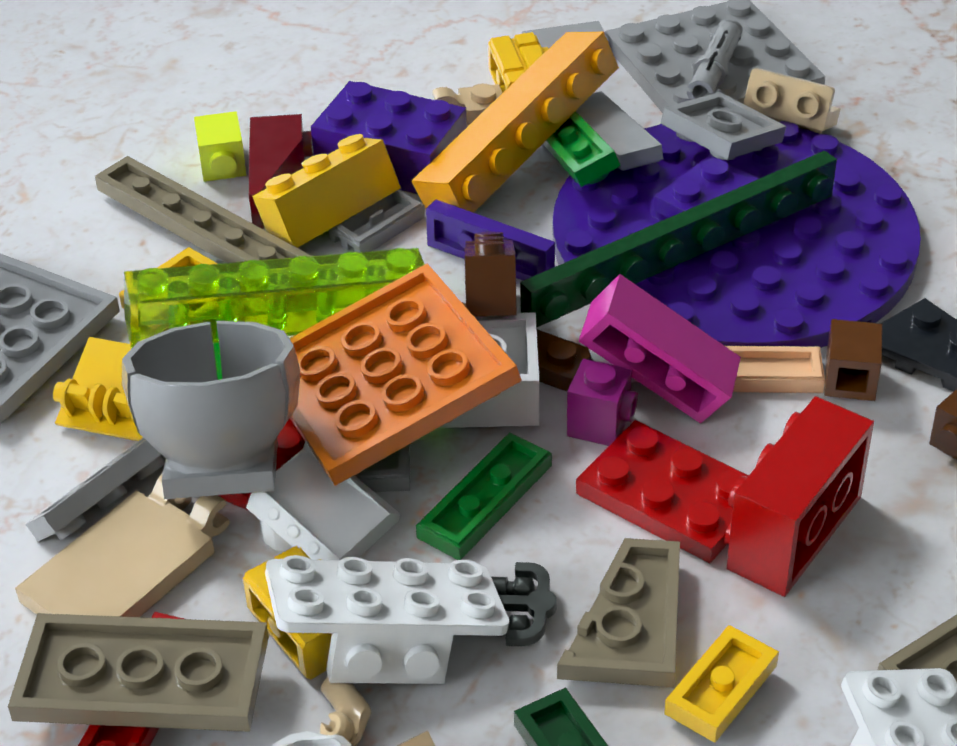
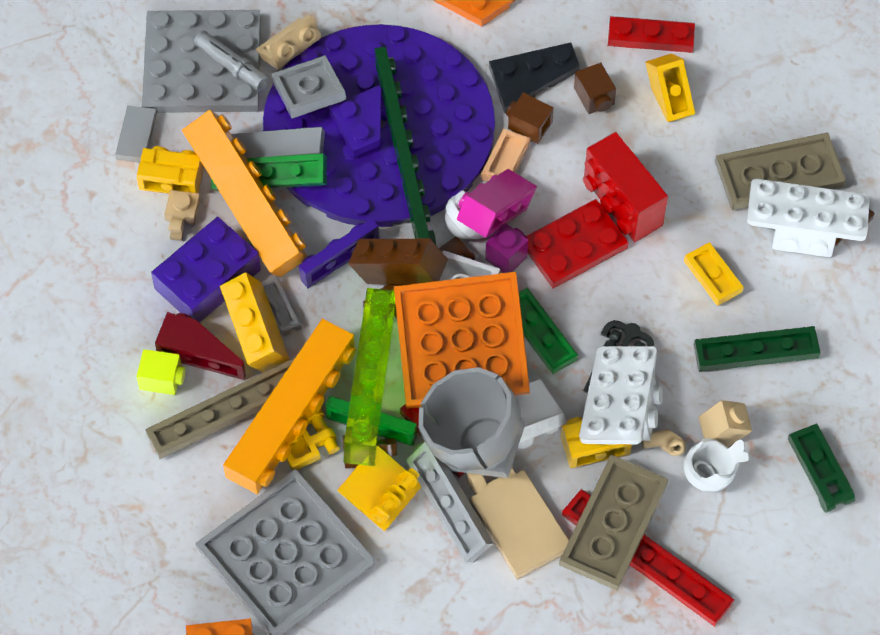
camera: 70 degrees left, 20 degrees up
(120, 239) = (290, 406): none -> light orange brick
(632, 622) = (657, 294): dark tan wing -> none

